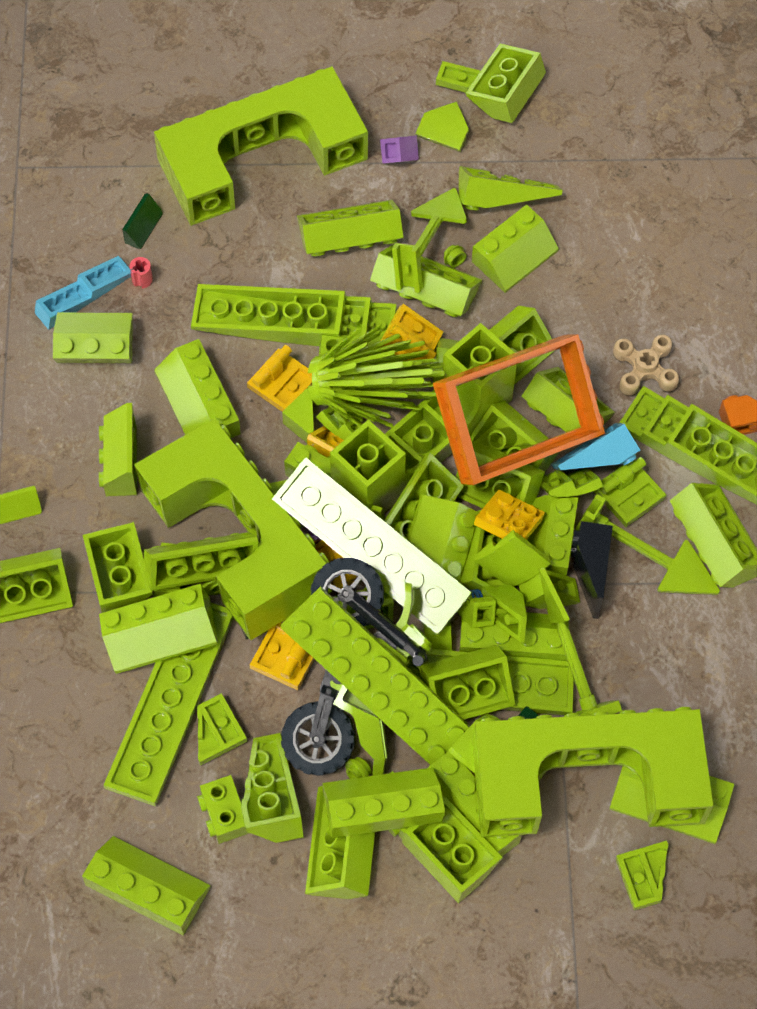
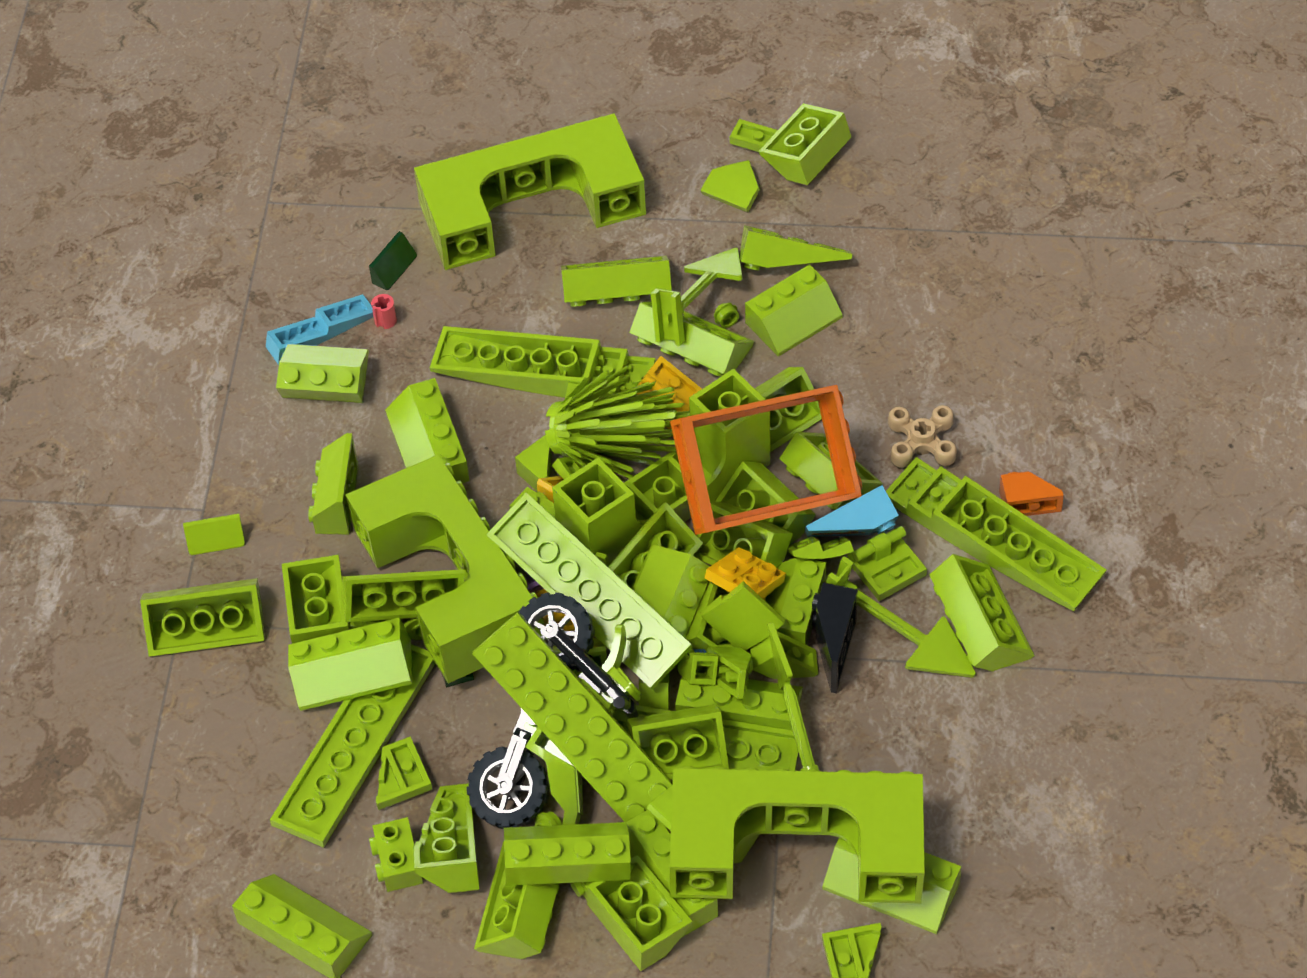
camera: 10 degrees right, 10 degrees down
(280, 379) = (517, 424): yellow plate -> none
(282, 658) = (483, 705): yellow plate -> none
(399, 149) = (680, 204): medium lavender panel -> none

